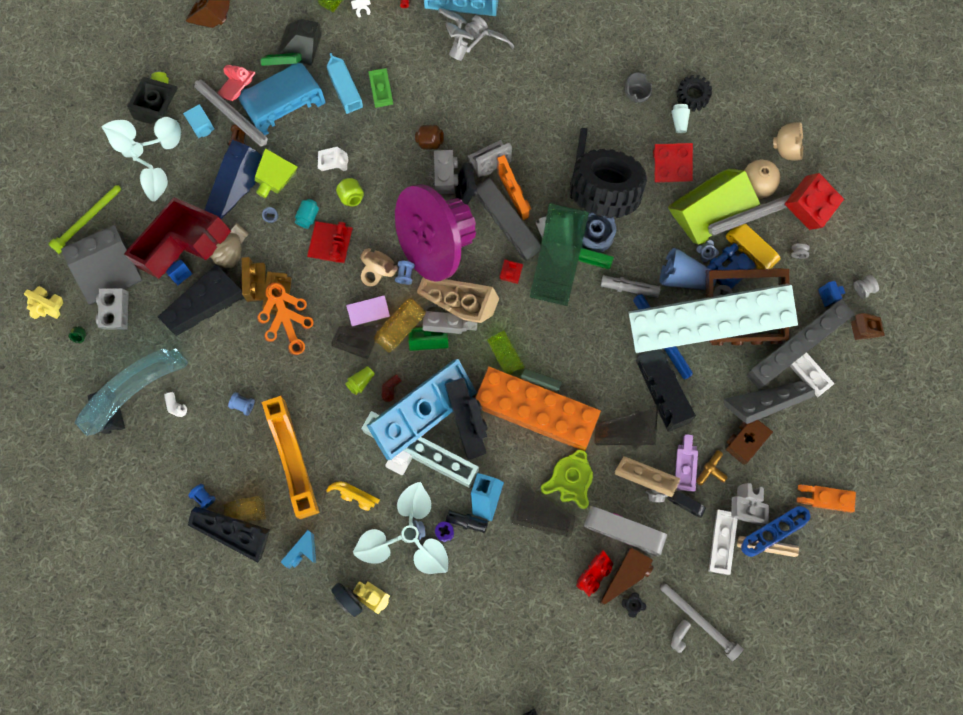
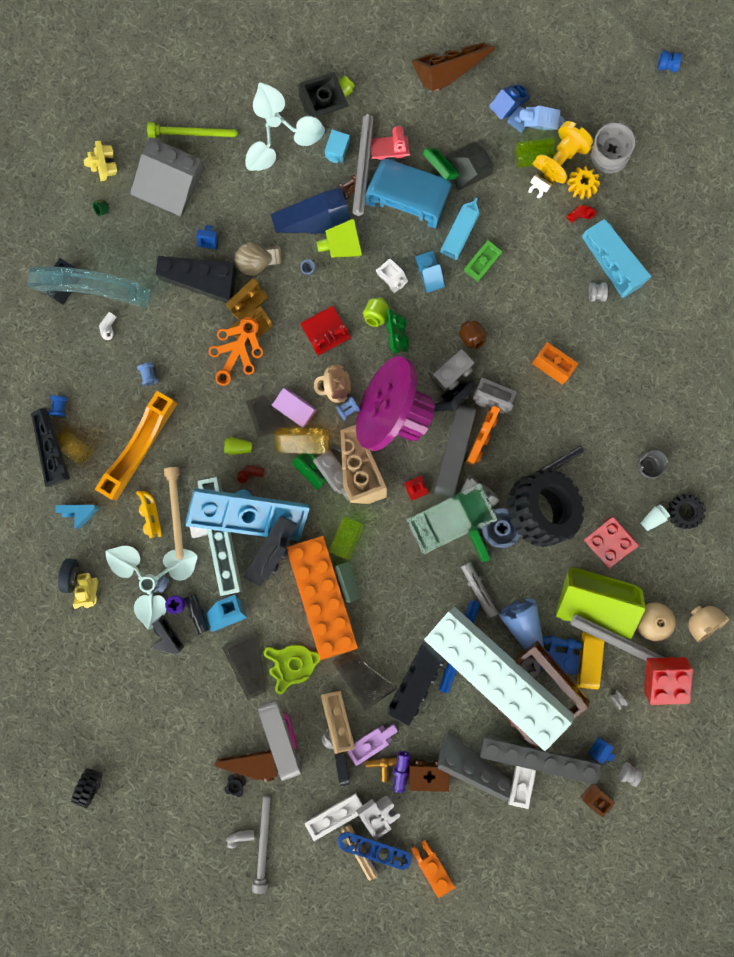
camera: 50 degrees right, 10 degrees up
(118, 308) = (142, 221): light grey brick -> none
(173, 231) = (228, 208): dark red piece -> none
(306, 213) = (332, 293): teal brick -> none
(338, 450) = (172, 476): none -> tan piece
(354, 131) = (430, 271): none -> dark azure slope
(372, 186) = (396, 328): none -> green hinge
(459, 45) = (572, 292): light grey plant -> none
(470, 561) = (169, 641): none -> black slope
(503, 97) = (555, 363): none -> orange hinge
(600, 567) = (224, 742): red hinge -> none
(705, 256) = (556, 631): sand blue plate -> none
(727, 458) = (401, 771): none -> dark purple pin

